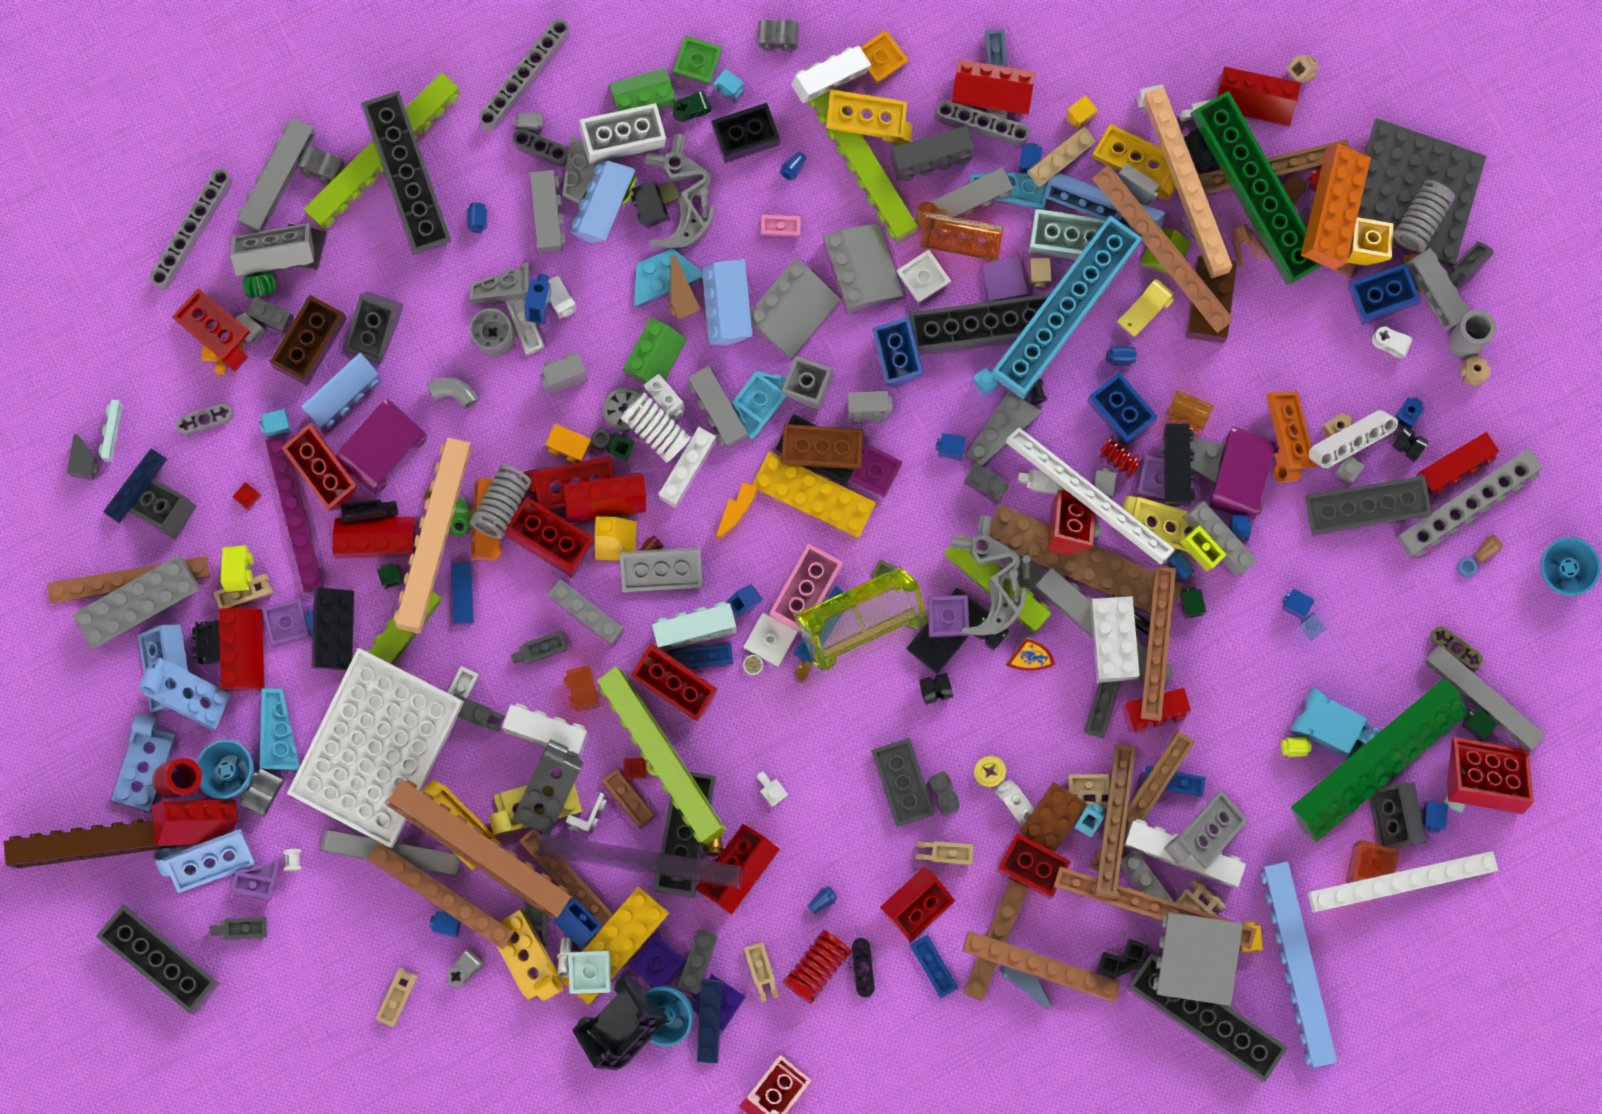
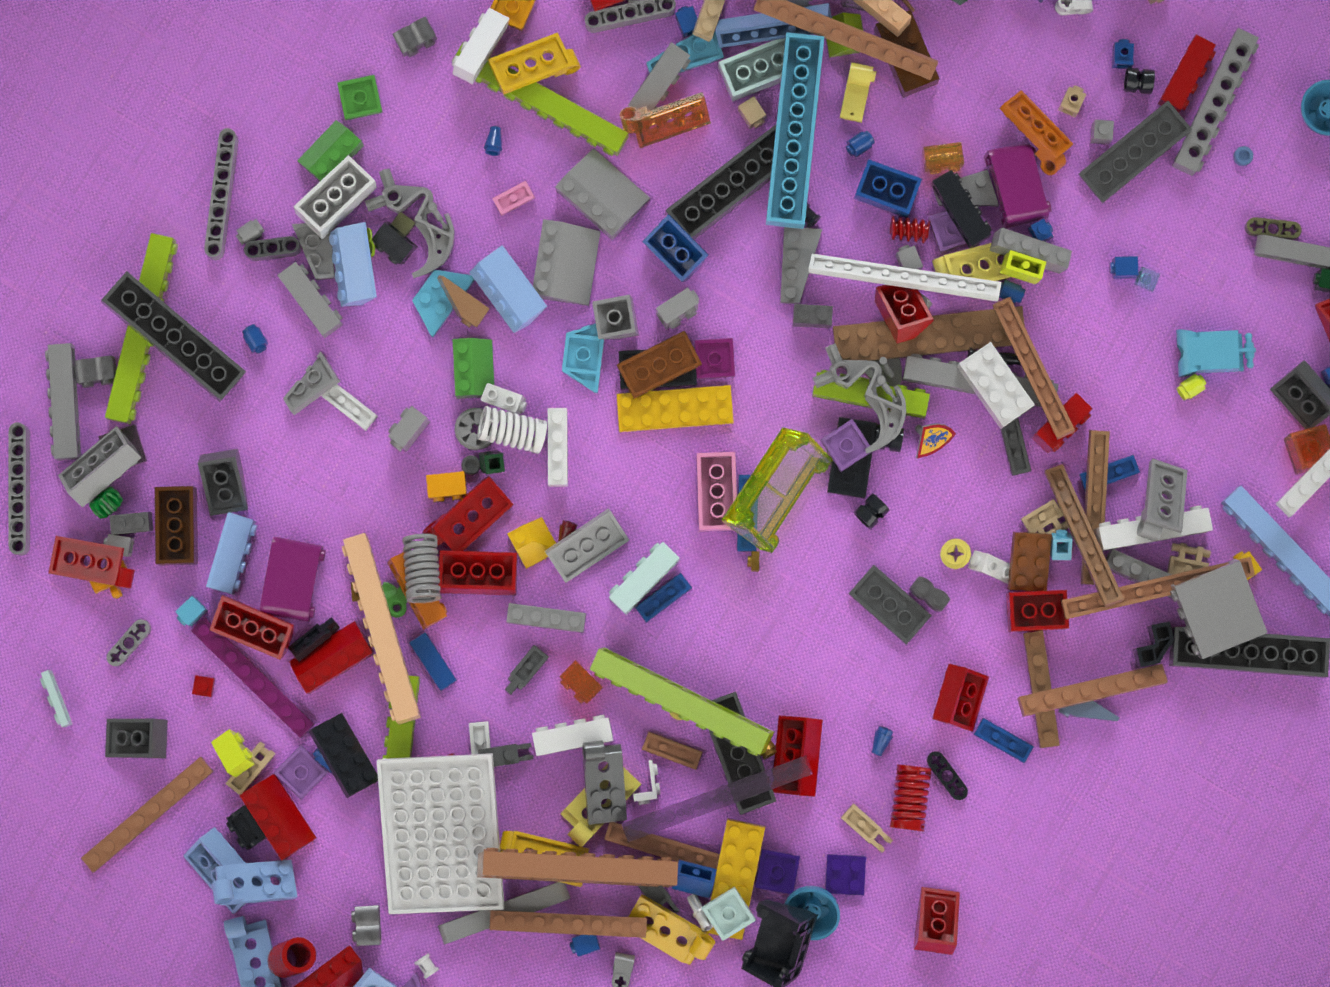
camera: 30 degrees left, 5 degrees up
(82, 461) = (47, 737): dark grey slope -> none
(135, 485) = (104, 732): dark blue plate -> none
(136, 602) = (166, 830): light grey brick -> none
(217, 764) = (316, 926): dark azure piece -> none
(276, 736) = (353, 875): medium azure wing -> none
(390, 575) = (364, 682): dark green brick -> none
(453, 388) = (323, 494): light grey cylinder -> none
(491, 321) = (316, 425): light grey wheel -> none
(538, 299) = (349, 378): blue torso -> none
(560, 299) = (364, 366): white bracket -> none
(604, 497) = (504, 512): red slope -> none
(634, 768) = (663, 723): red plate -> none
(674, 682) = (655, 634): red slope -> none
(693, 105) = (380, 138): dark green piece -> none
(697, 962) = (810, 852): dark grey brick -> none
(709, 1021) = (849, 894): dark blue plate -> none
(717, 406) = (552, 382): light grey brick -> none
(729, 85) = (399, 104): medium azure brick -> none
(736, 510) = (619, 458): light orange slope -> none
(744, 600) = (671, 530): blue brick -> none
(745, 132) = (437, 136): black brick -> none
(753, 665) = (709, 579): tile -> none
(770, 640) = (711, 550): white plate -> none
(772, 791) = (787, 674): white plate -> none
(881, 568) = (768, 437): olive tile -> none
(923, 276) = (657, 172): white plate -> none
(932, 153) = (604, 64): dark grey brick -> none
(947, 853) = (960, 641): tan hinge -> none
(950, 446) = (764, 302): blue brick -> none
(985, 382) = (761, 231): medium azure brick -> none
(1004, 279) = (725, 135): medium lavender tile -> none
(1039, 482) = (854, 289): white hinge -> none
(1192, 603) = (1038, 316): dark green brick -> none
(1353, 439) = (1091, 103): white beam -> none
(1379, 760) = (1267, 358): green brick -> none
(1488, 548) = (1252, 129): medium nougat cone -> none

